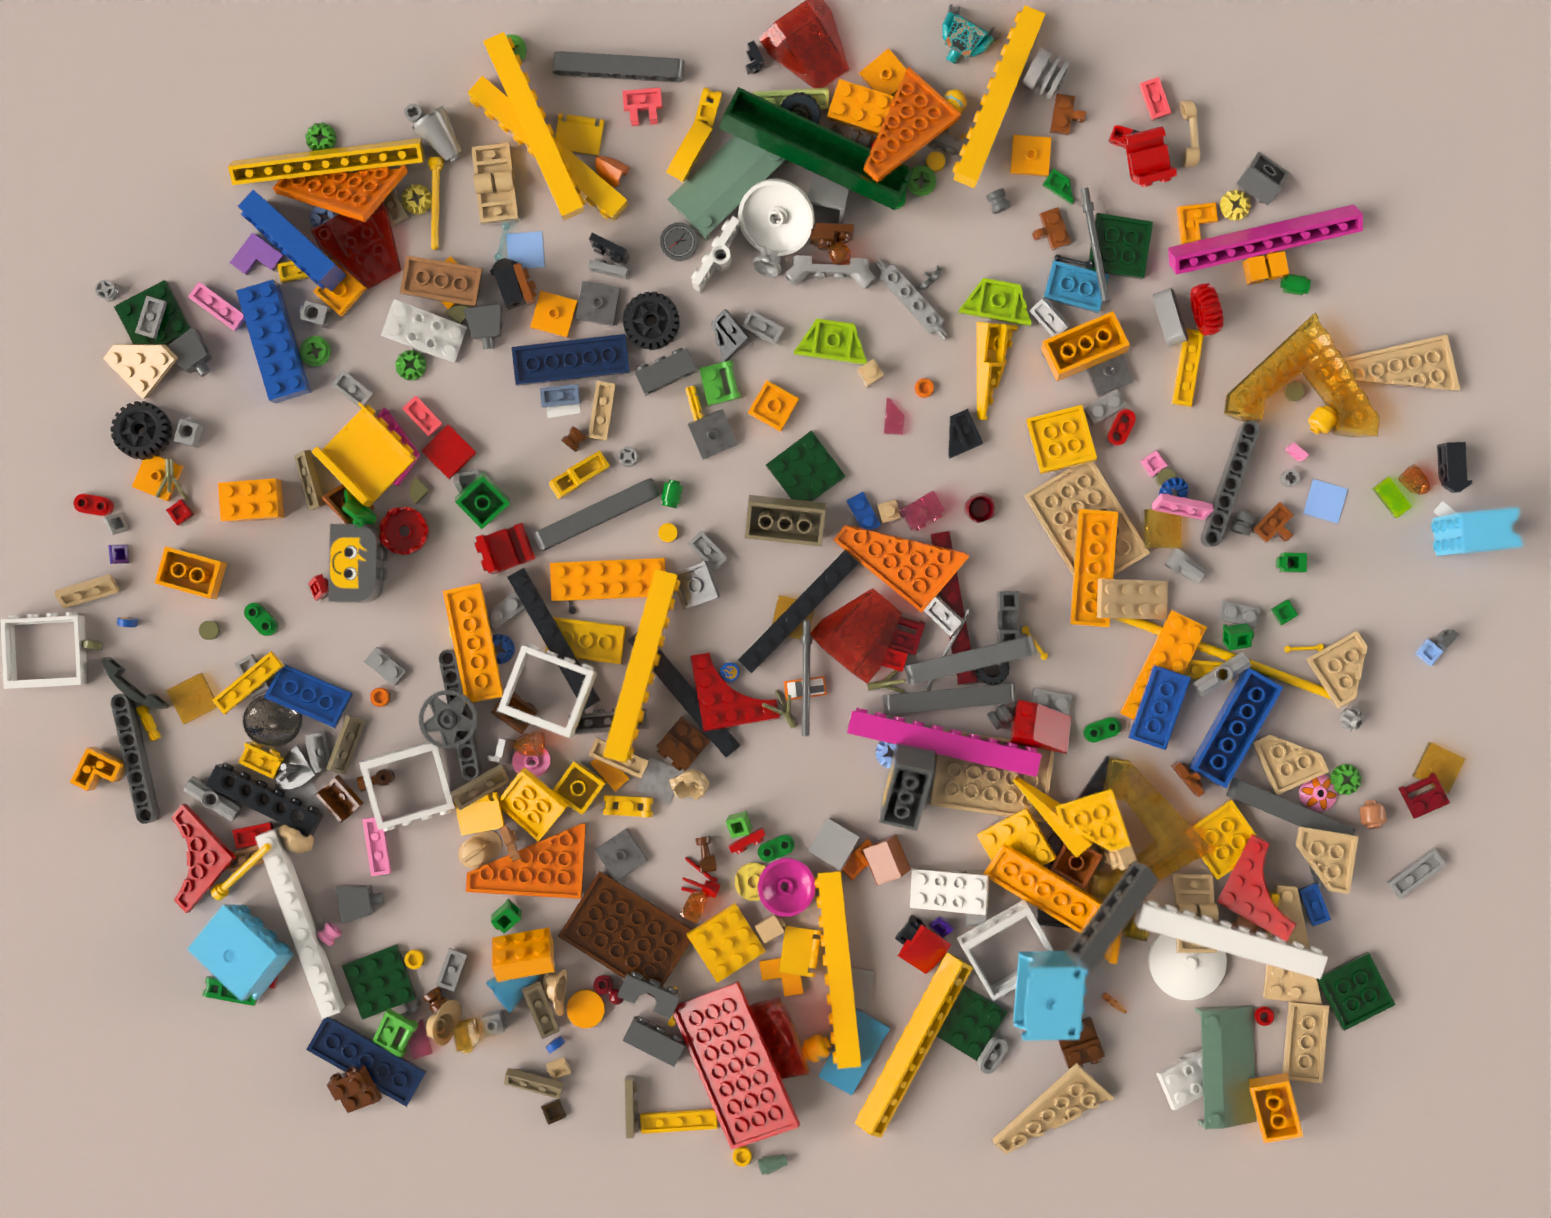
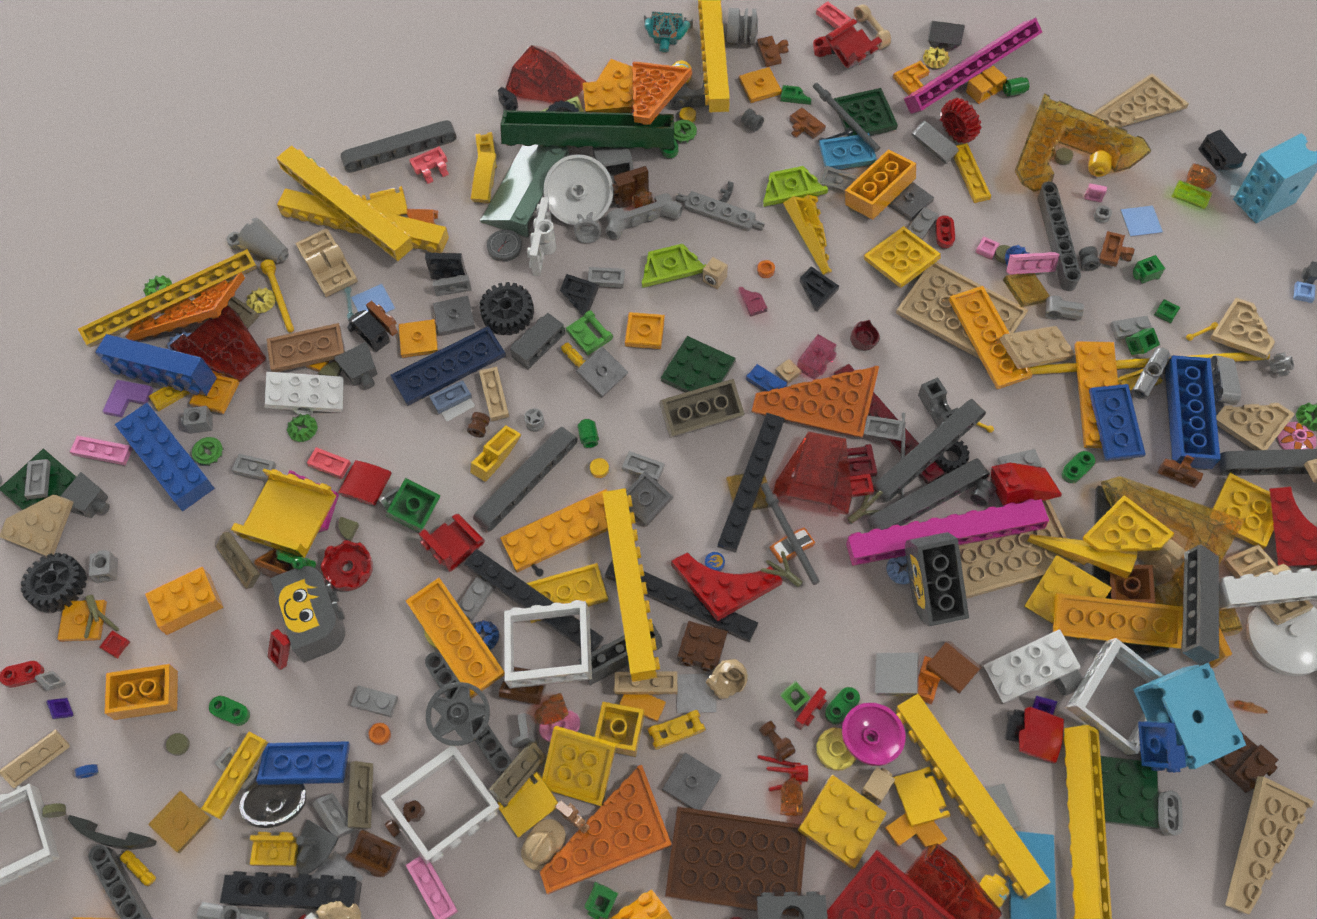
camera: 25 degrees left, 25 degrees down
(1009, 1007) = (1160, 747): none -> blue plate
(1286, 710) = (1225, 380): none -> light grey beam

